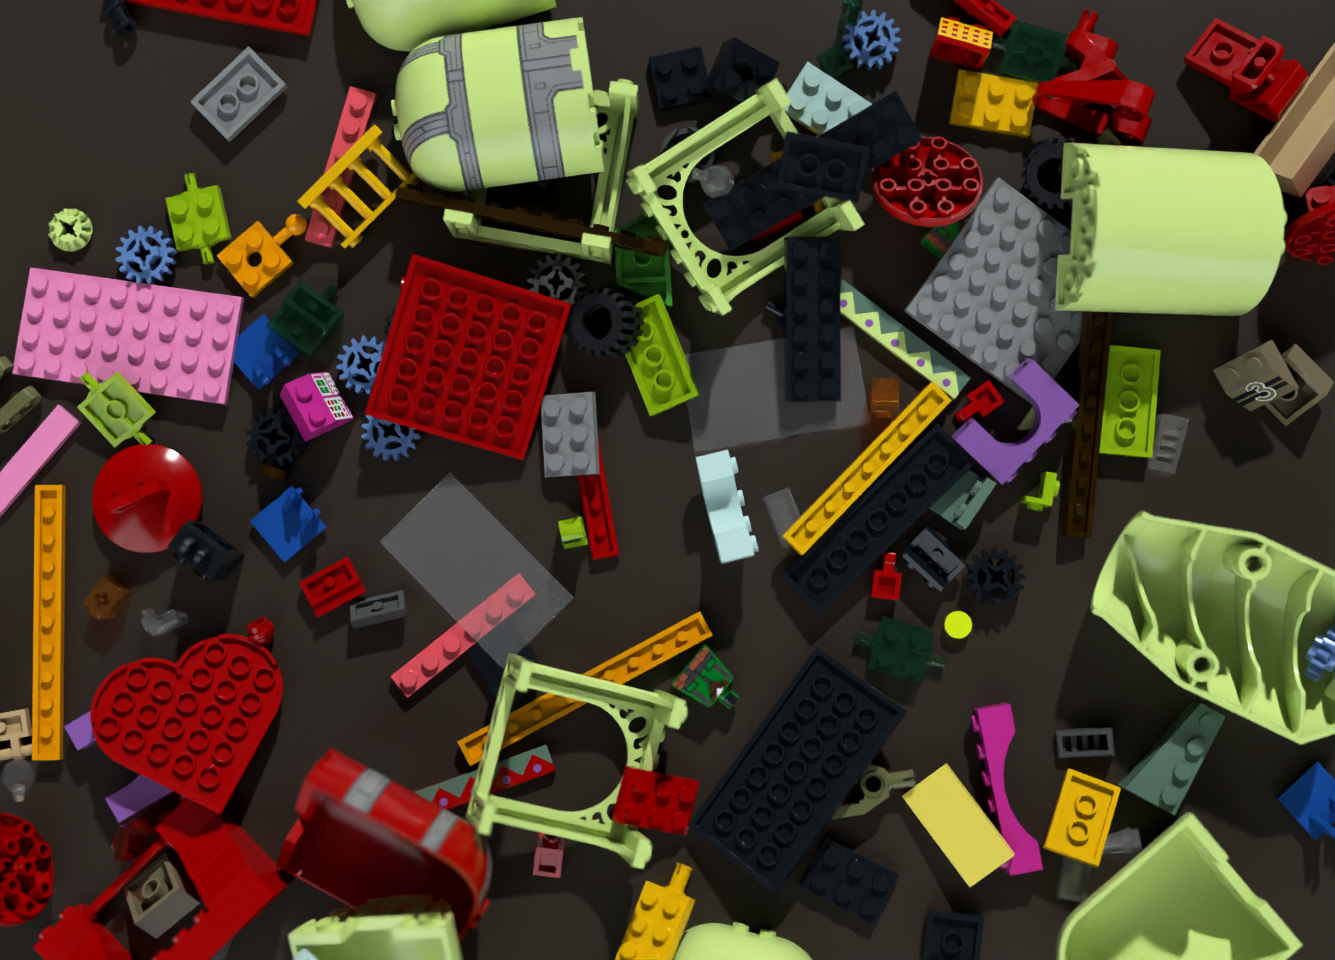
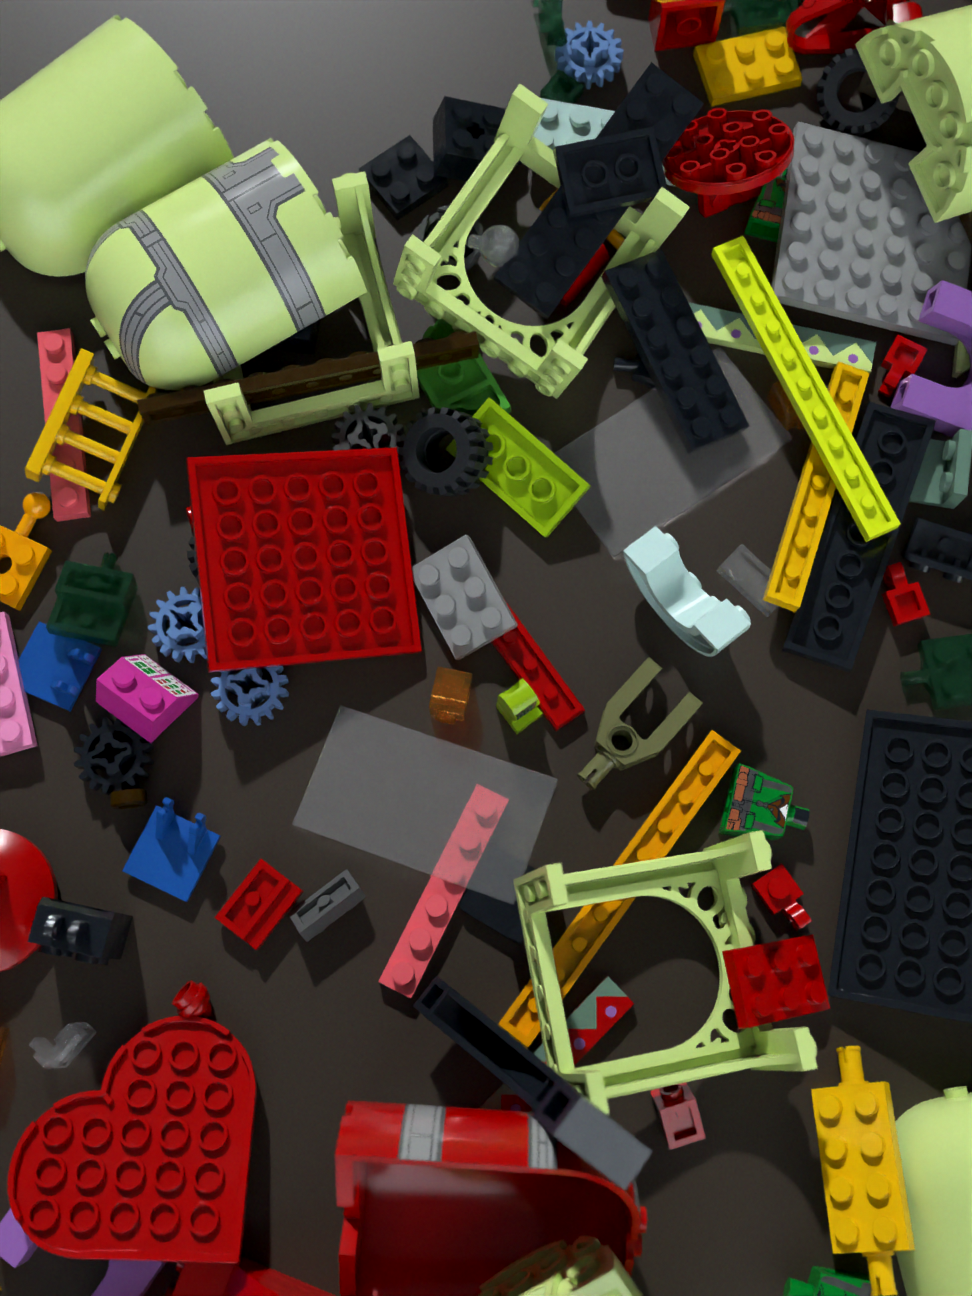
camera: 25 degrees left, 10 degrees down
(458, 822) = (555, 1101): none -> black arch
(528, 502) = (450, 695): none -> clear orange brick
(630, 575) = (639, 749): none -> olive piece
(691, 743) = (779, 892): none -> red plate
(890, 391) = (805, 389): none -> neon yellow plate

